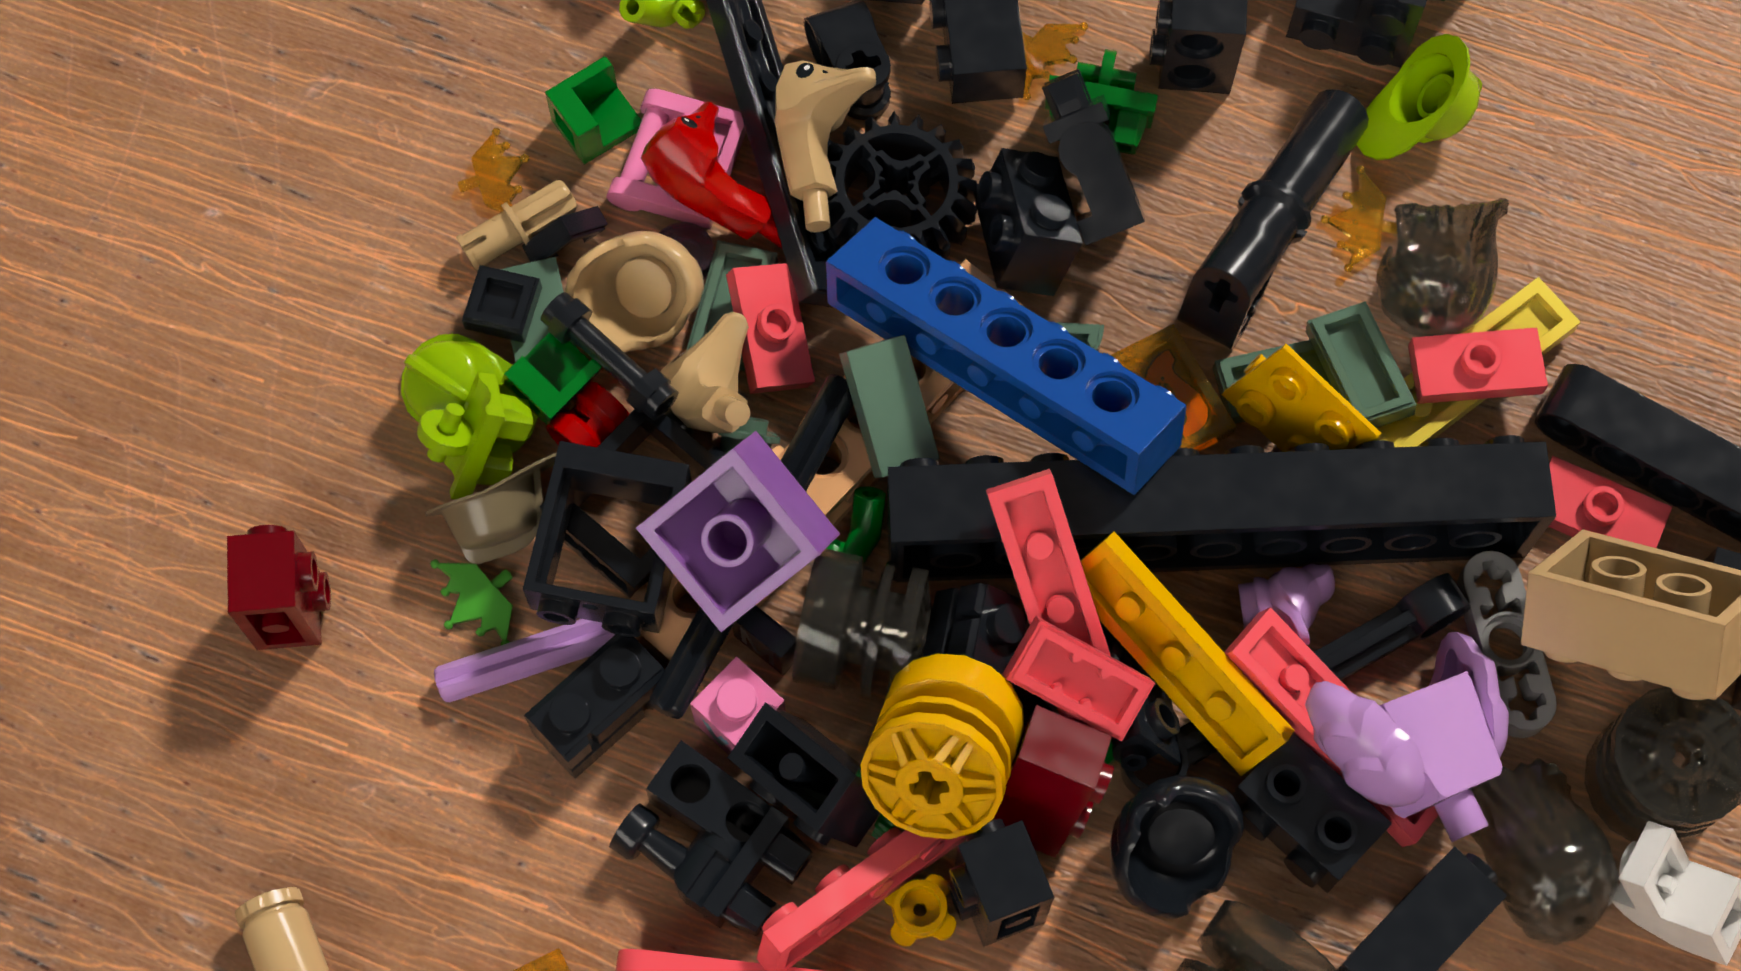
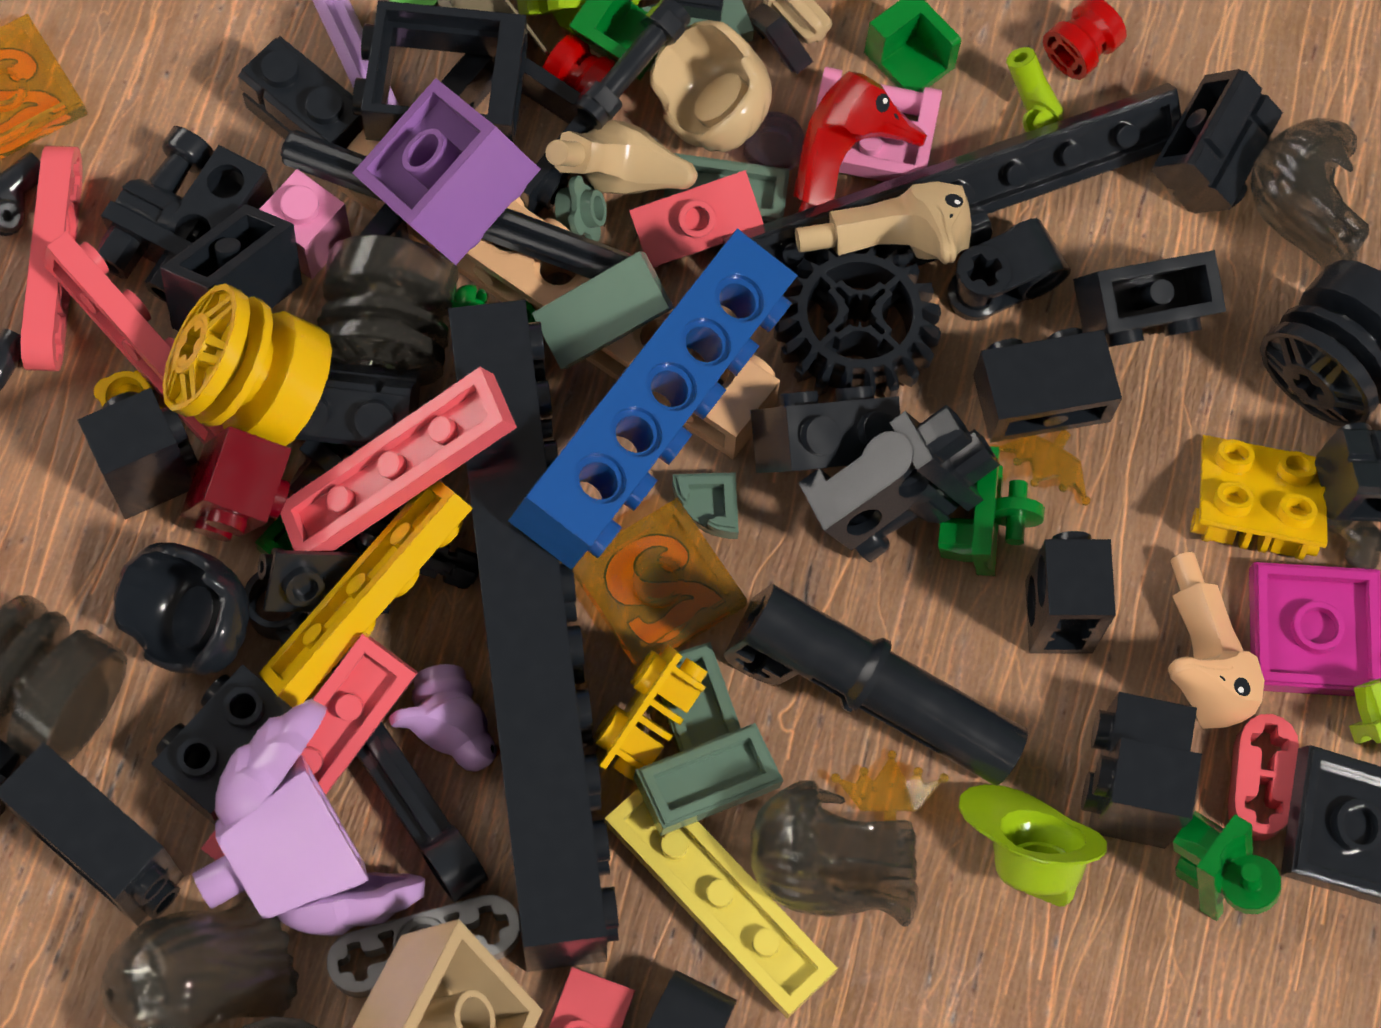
camera: 80 degrees right, 0 degrees up
(1078, 678) = (321, 487): coral plate -> none
(1477, 365) = (719, 897): coral plate -> none

